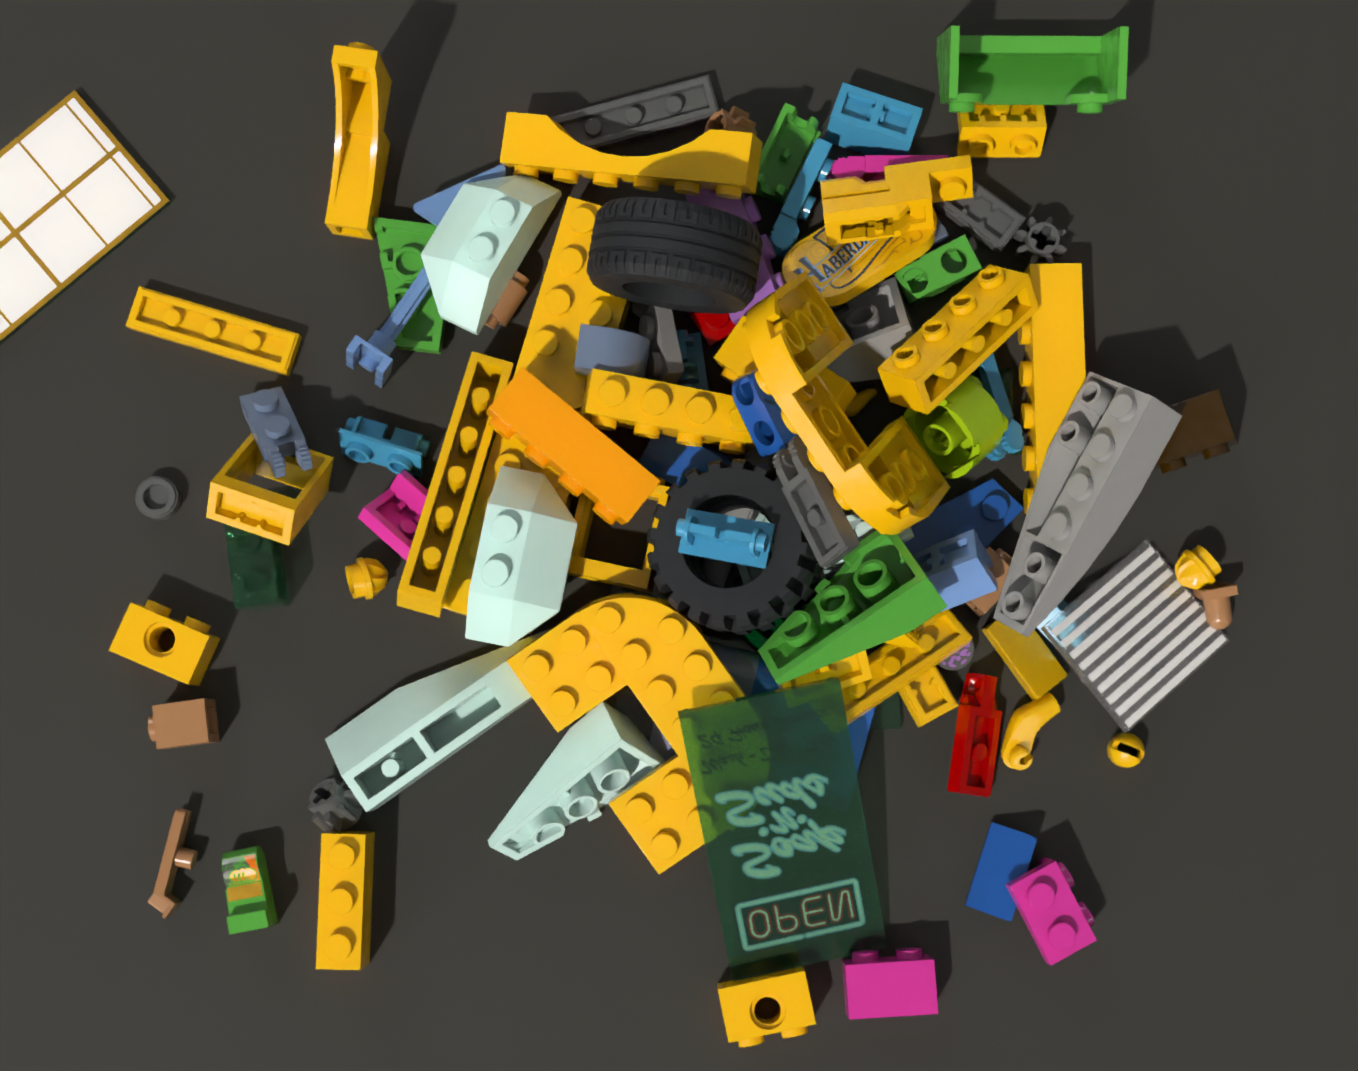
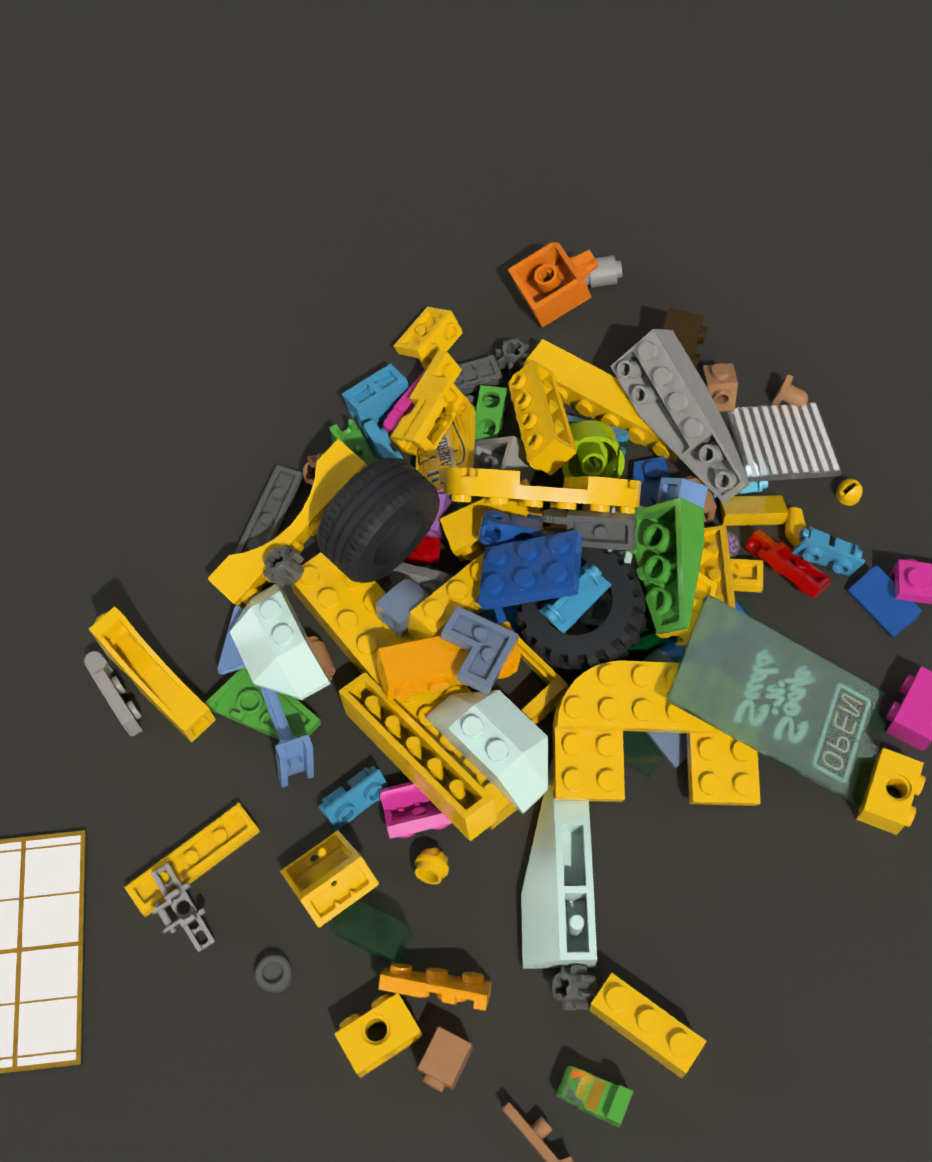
camera: 55 degrees left, 20 degrees down
(156, 345) = (183, 919): none -> light grey piece
(251, 682) = (449, 988): none -> light orange wing
(275, 429) = (294, 851): sand blue hinge -> none
(310, 139) = (112, 691): none -> light grey hinge
(567, 187) = (283, 566): none -> dark grey gear
(581, 775) = (660, 801): light aqua wedge -> none
(608, 480) = (487, 644): none -> sand blue plate
(722, 469) = (531, 570): none -> blue plate
(1023, 790) = (840, 557): none -> dark azure hinge
(1032, 70) = (417, 294): bright green windscreen -> none
(1161, 514) = (721, 384): none -> medium nougat brick
(1179, 242) = (553, 281): none -> orange hinge
(1196, 568) = (762, 390): yellow plate -> none
(1240, 264) = (606, 272): none -> light grey brick

